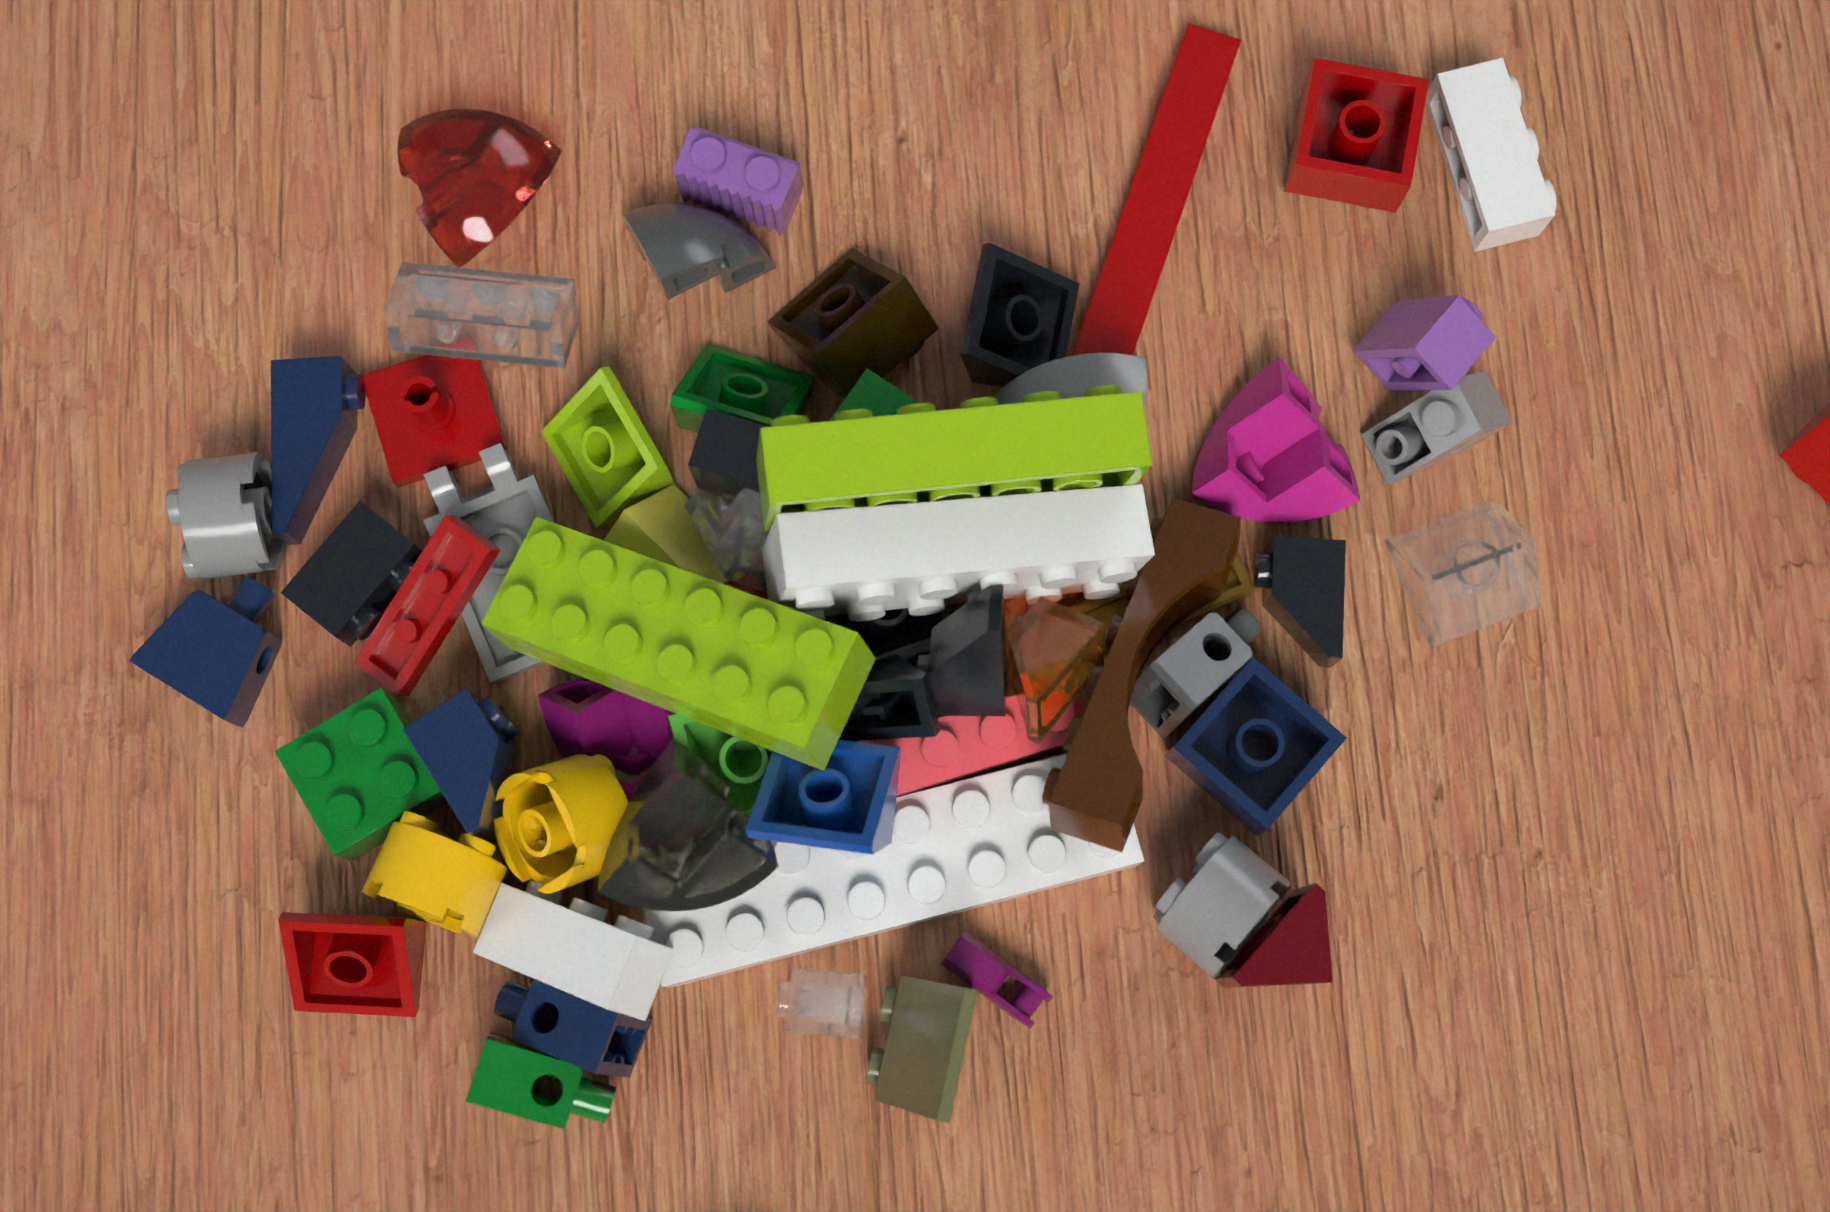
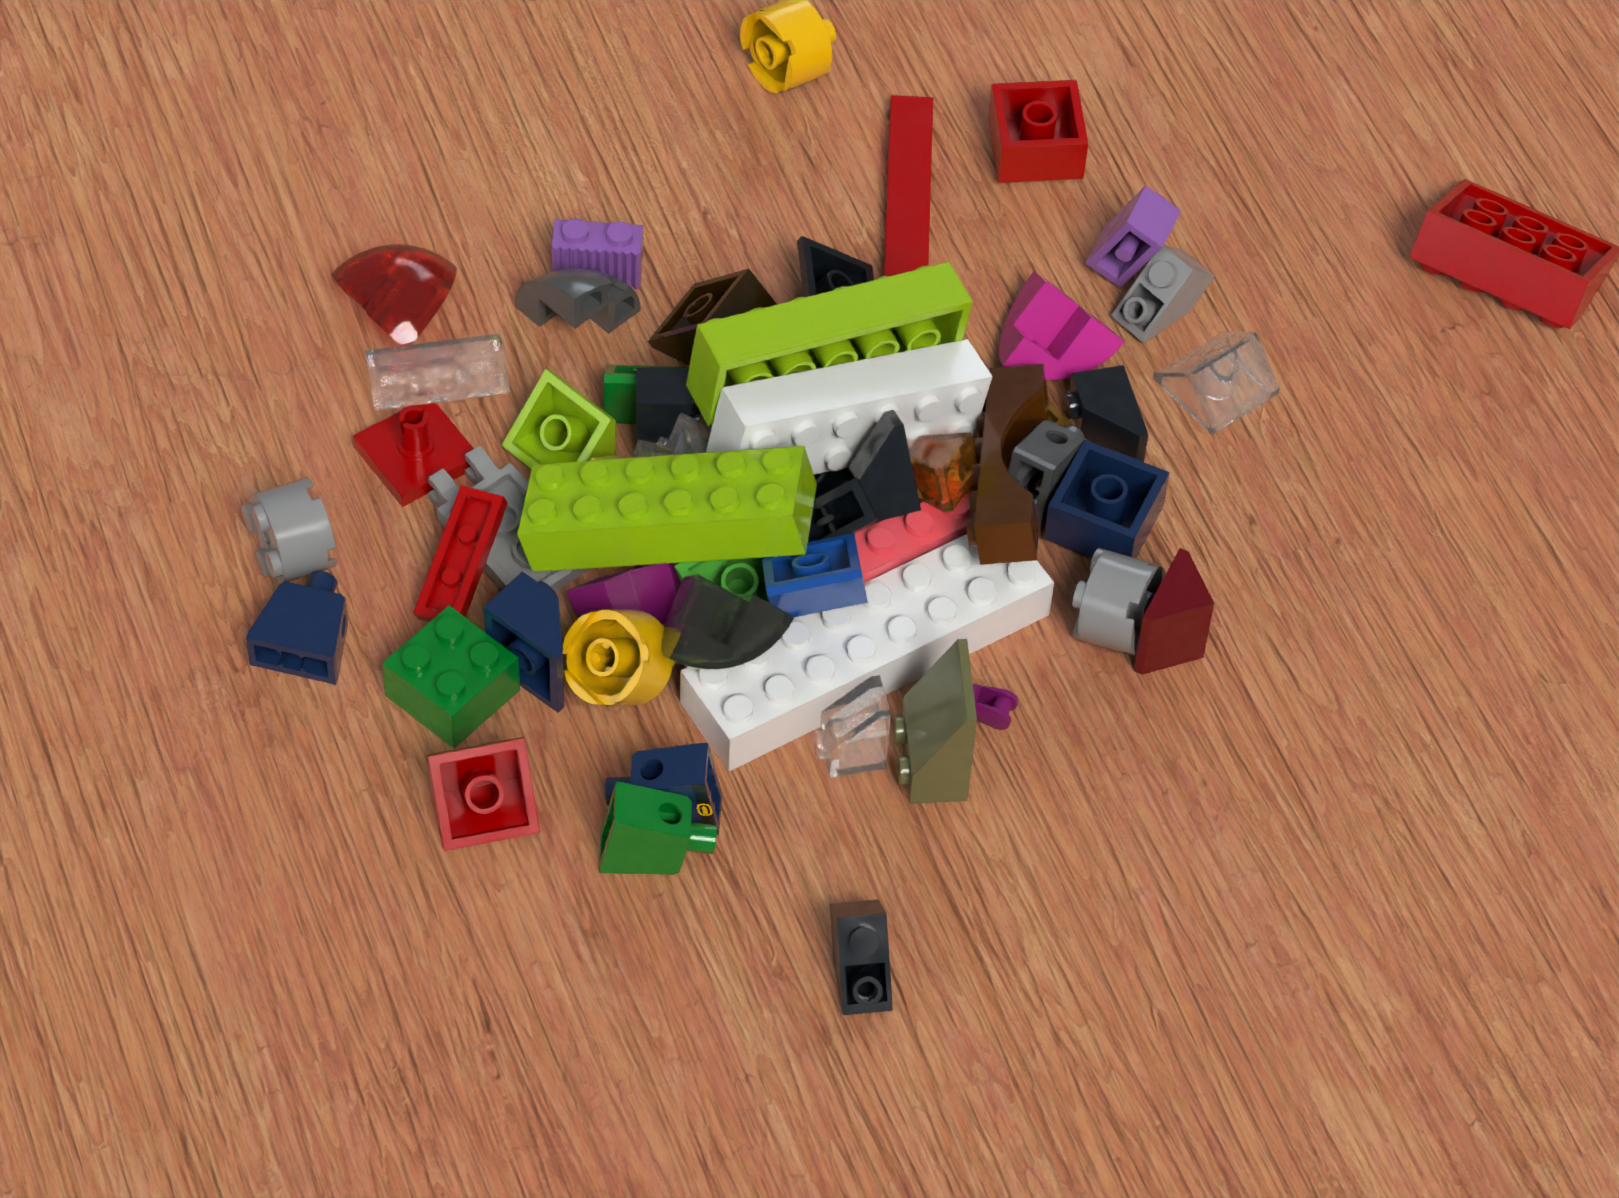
camera: 20 degrees left, 25 degrees down
(310, 432) = (327, 457): dark blue slope -> none
(353, 575) = (397, 553): black brick -> none
(436, 876) = (535, 706): yellow brick -> none
(575, 948) = (652, 722): white brick -> none
(1490, 154) = (1137, 127): white brick -> none

